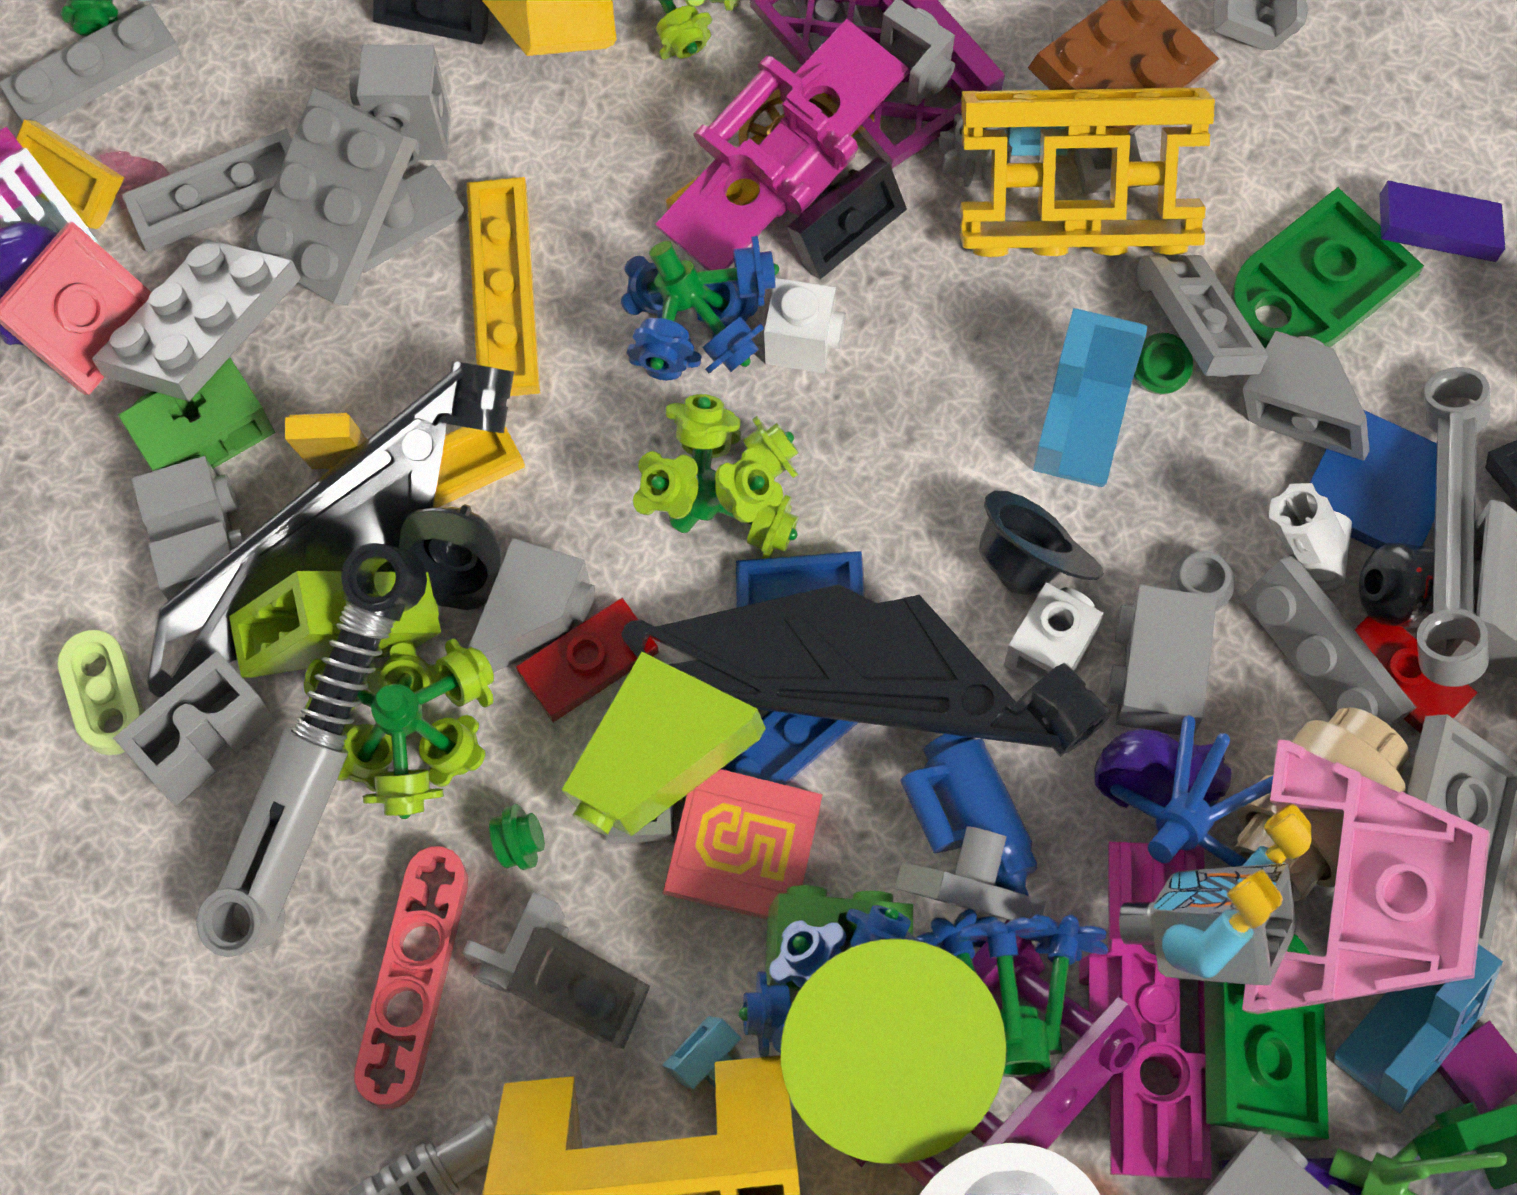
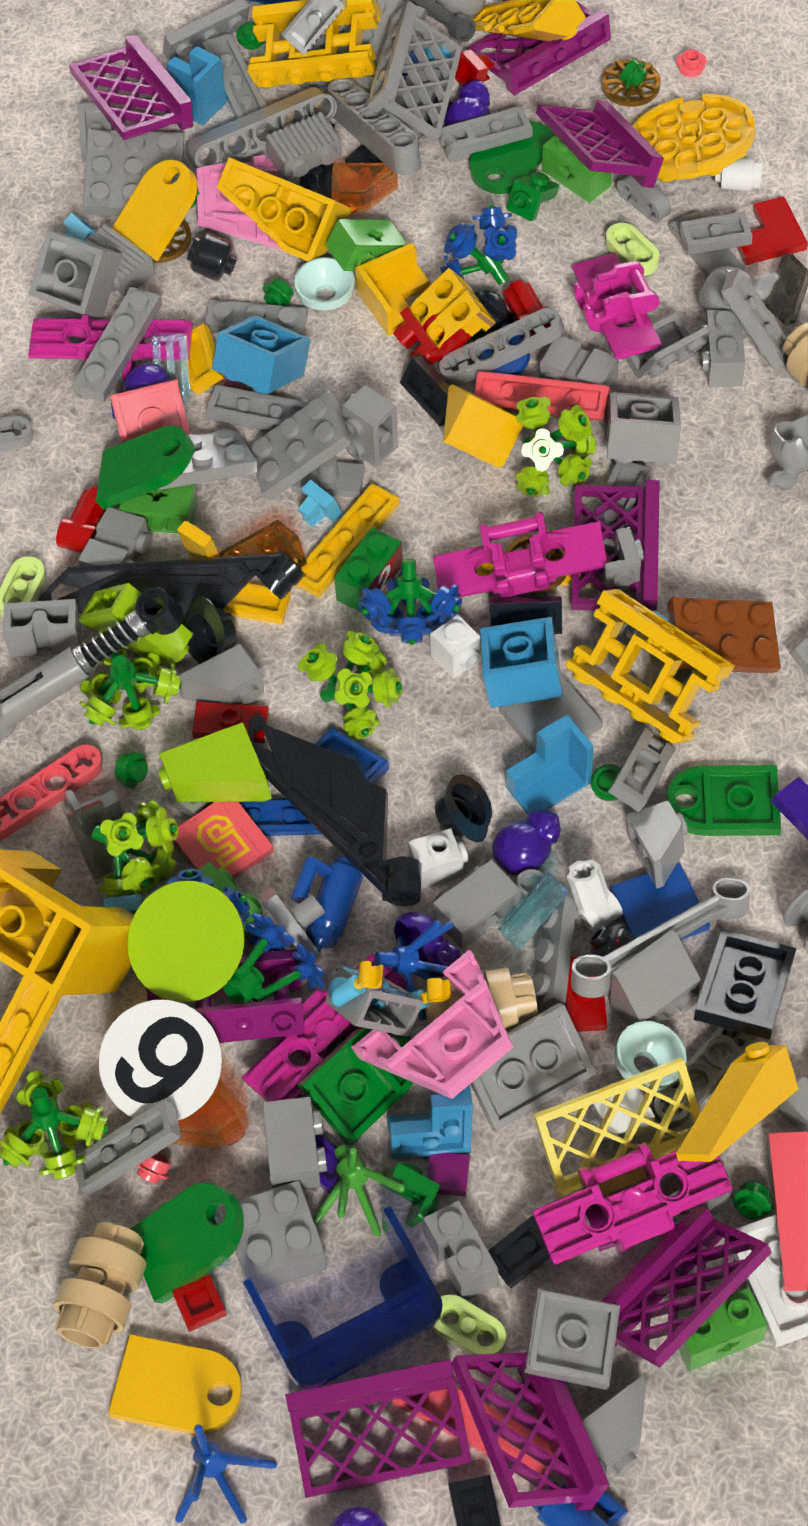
camera: 40 degrees right, 10 degrees down
(112, 531) = (81, 526): none -> red piece
(137, 380) = (143, 465): none -> green tile
(154, 107) = (261, 354): none -> dark azure brick
(408, 362) = (269, 541): none -> clear orange bracket
(425, 261) = (318, 504): none -> medium azure tile
(585, 305) = (369, 566): none -> green brick
(649, 963) = (126, 838): none -> lime plant
(917, 282) = (520, 662): none -> dark azure brick
(1002, 332) = (535, 715): none -> light grey tile
(1138, 529) = (527, 842): none -> dark purple hair
(1244, 610) = (533, 910): none -> clear light blue tile

